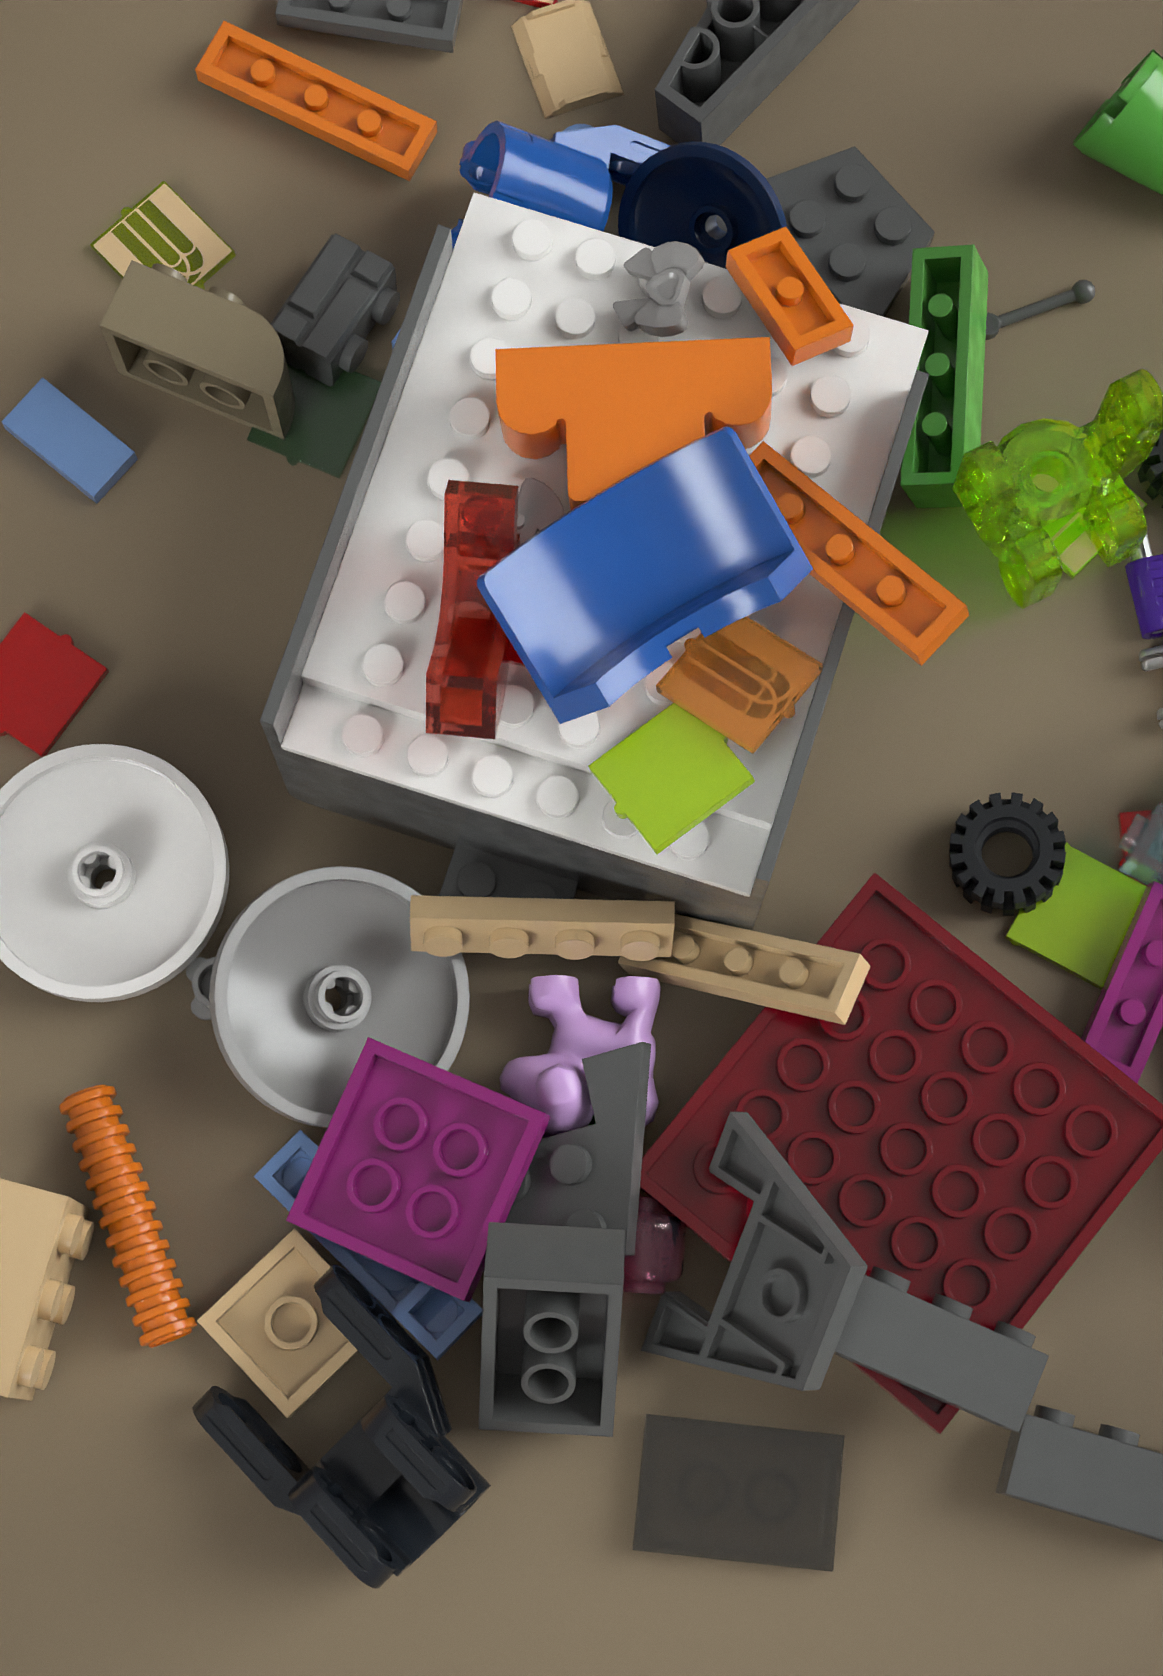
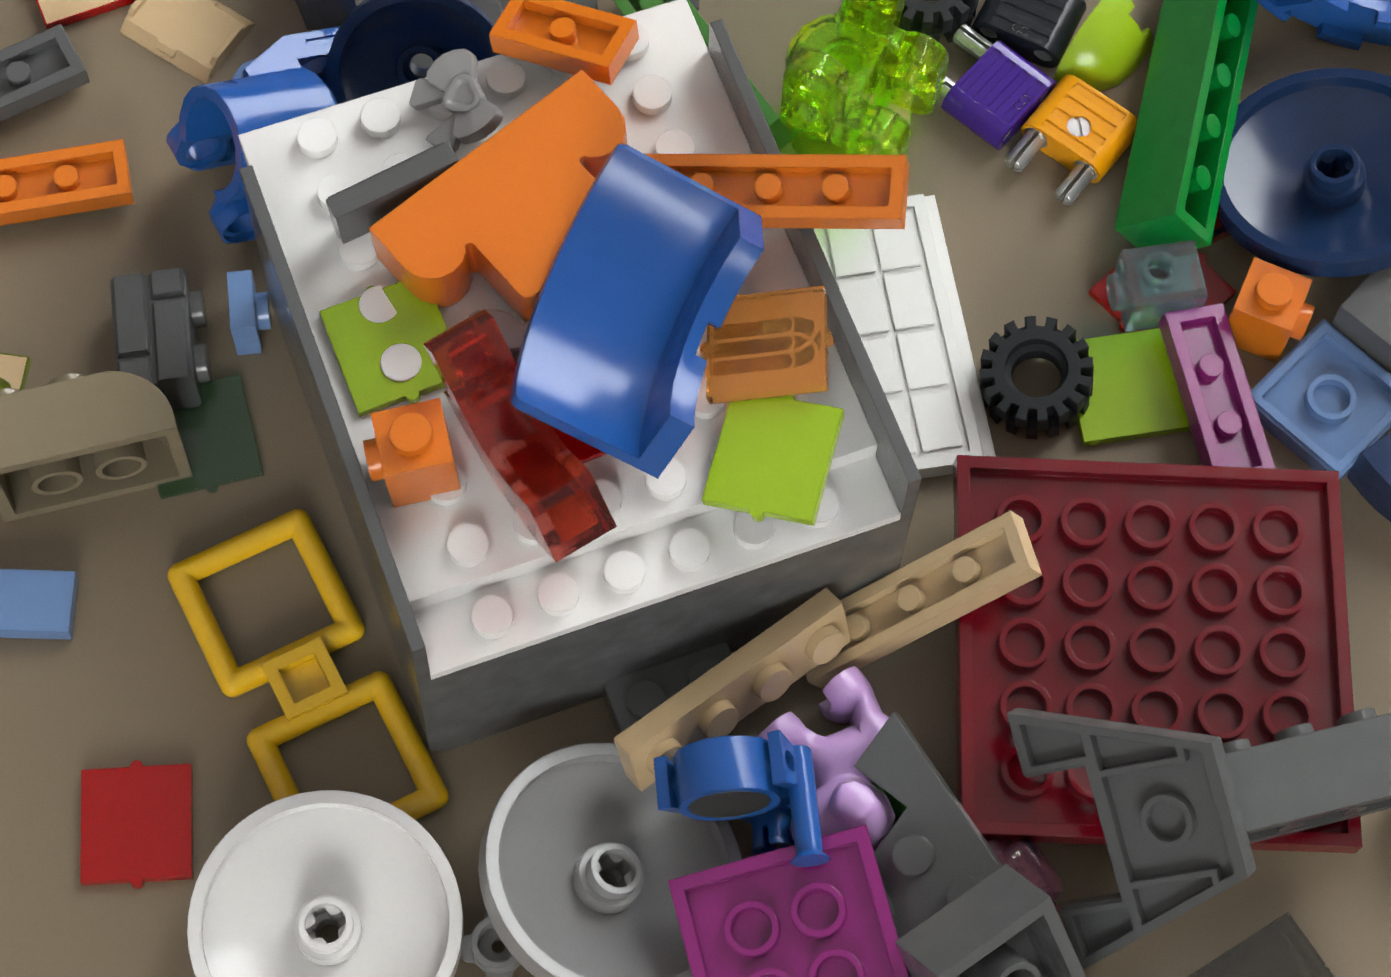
camera: 40 degrees left, 10 degrees down
(237, 658) = (302, 671): none -> yellow bar
(390, 559) = (412, 452): none -> orange brick
(431, 438) = (362, 342): none -> lime piece
(483, 1007) = (748, 781): none -> blue piece
(523, 326) = (373, 198): none -> dark grey tile
(918, 746) = (914, 333): none -> white piece

